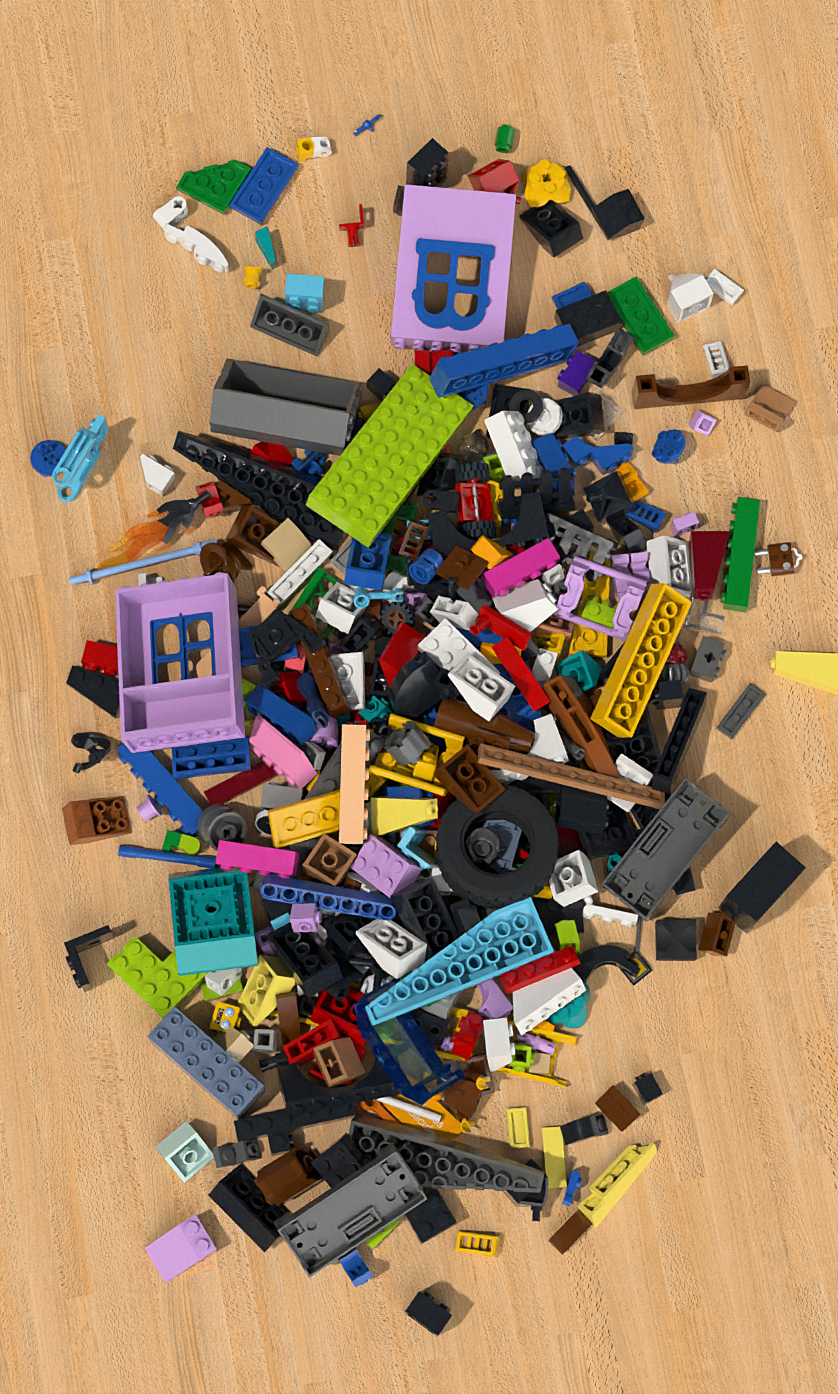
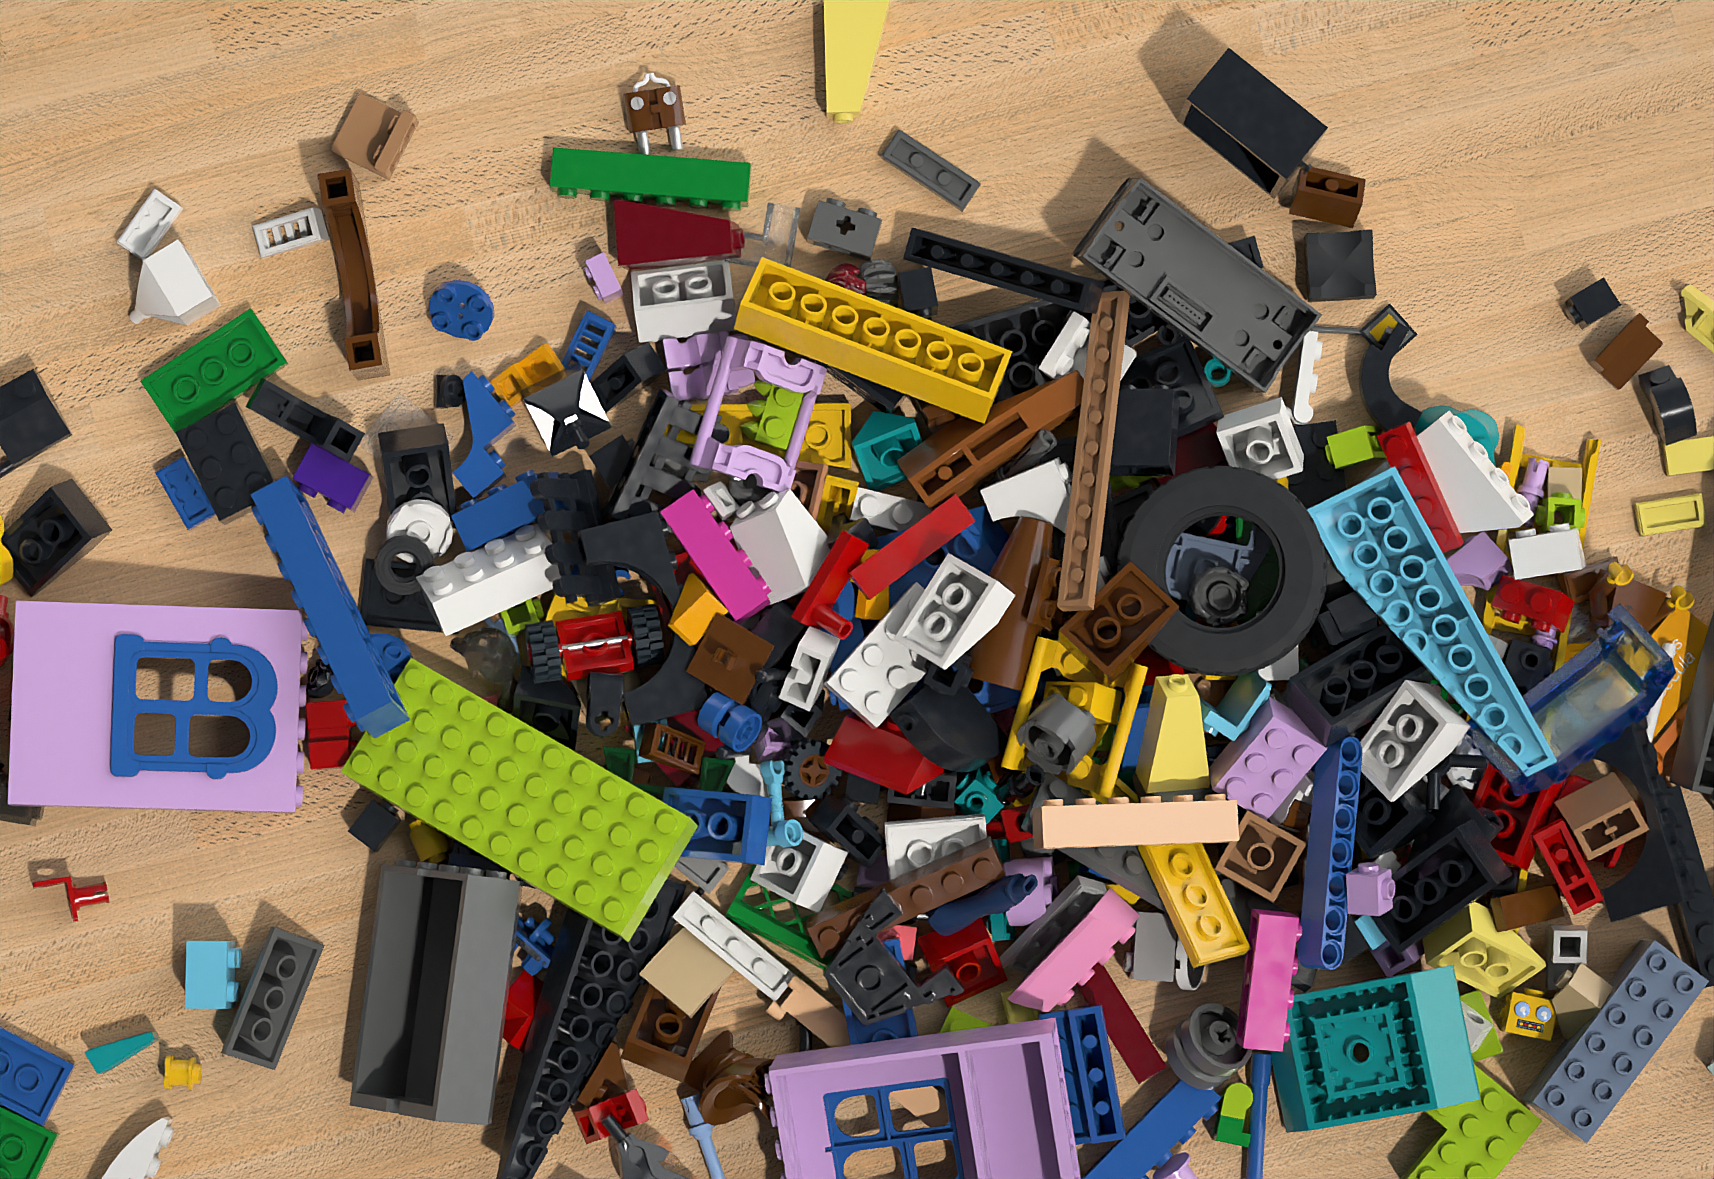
camera: 90 degrees left, 10 degrees up
(278, 1060) = (1596, 935): black pin -> none
(281, 715) = (1008, 958): blue brick -> none
(702, 422) = (409, 253): lavender slope -> none

